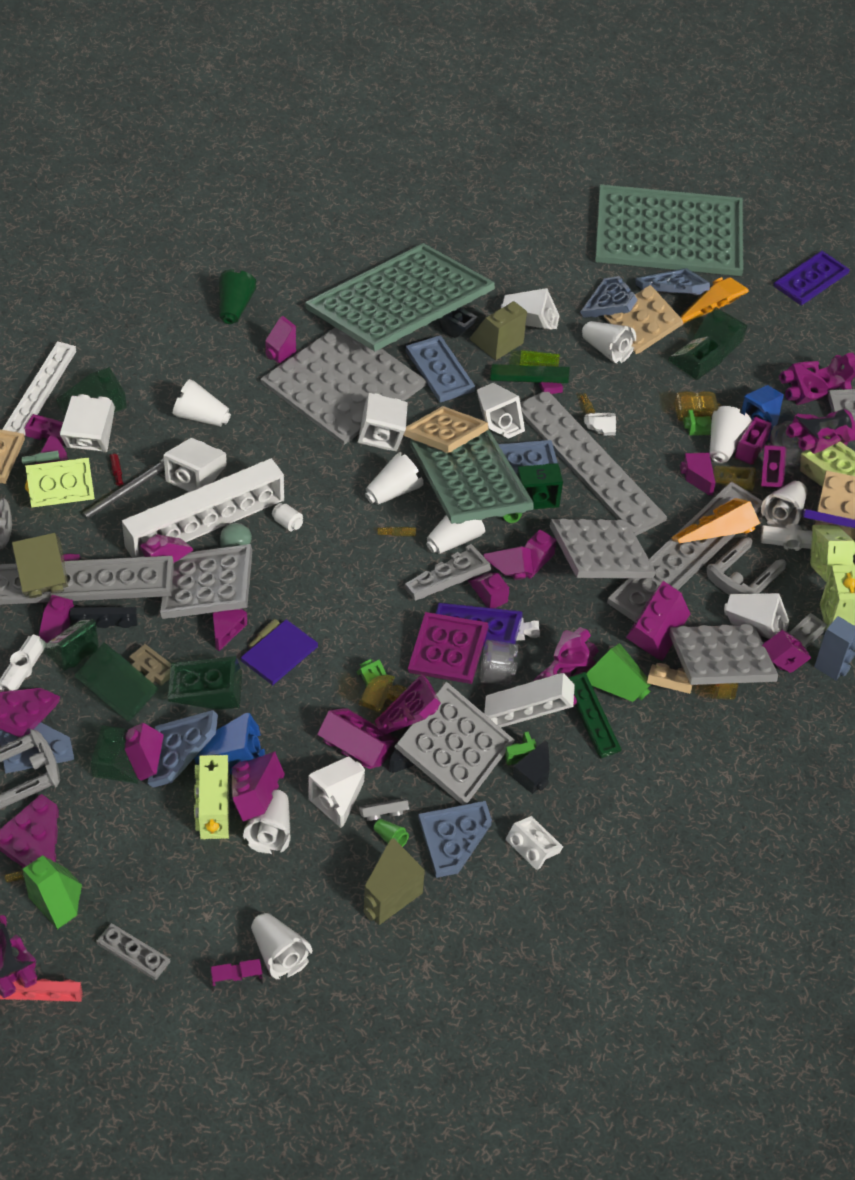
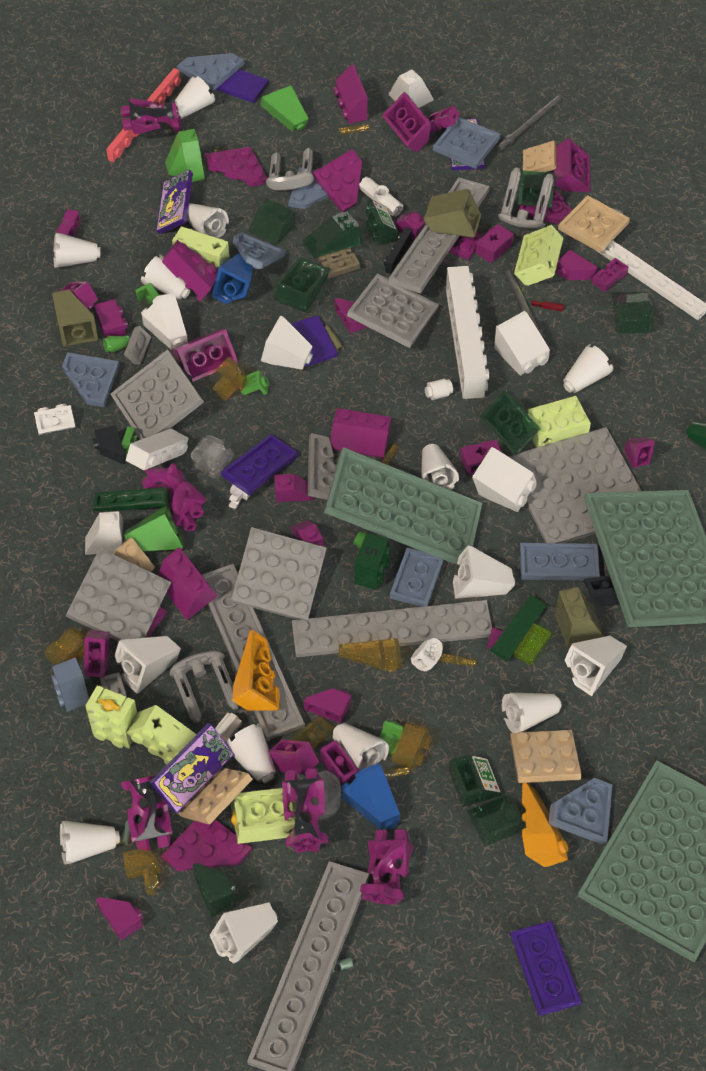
camera: 120 degrees right, 5 degrees up
(41, 457) = (570, 251): sand green piece -> none
(43, 526) = (494, 243): none -> magenta brick
(88, 423) = (593, 287): white slope -> none
(135, 871) = (174, 202): none -> tile
(143, 749) = (266, 231): magenta slope -> none
(144, 958) = (123, 190): light grey tile -> none
(151, 823) = (207, 219): none -> white cone
(166, 546) = (437, 295): magenta slope -> none
(235, 535) = (436, 351): sand green hair -> none
(280, 411) = (559, 421): none -> yellowish green piece
(301, 829) = (146, 292): none -> bright green bracket
(306, 437) = (511, 421): none -> clear green slope
(312, 657) = (286, 346): none -> white slope
(351, 893) = (83, 292): none -> magenta brick
(356, 455) = (473, 455): none -> magenta brick
(360, 853) = (110, 318): none -> magenta brick
(384, 558) = (360, 432): none -> magenta slope
(410, 707) = (195, 373): magenta plate -> none
(445, 429) = (474, 523): tan plate -> none
(448, 647) = (247, 432): magenta plate -> none
(512, 562) = (306, 510): magenta slope -> none
(610, 298) = (584, 736): sand blue plate -> none
(626, 455) = (376, 654): none -> clear yellow slope
(648, 711) = (105, 533): none -> white slope
(792, 690) = (68, 646): none -> clear yellow brick

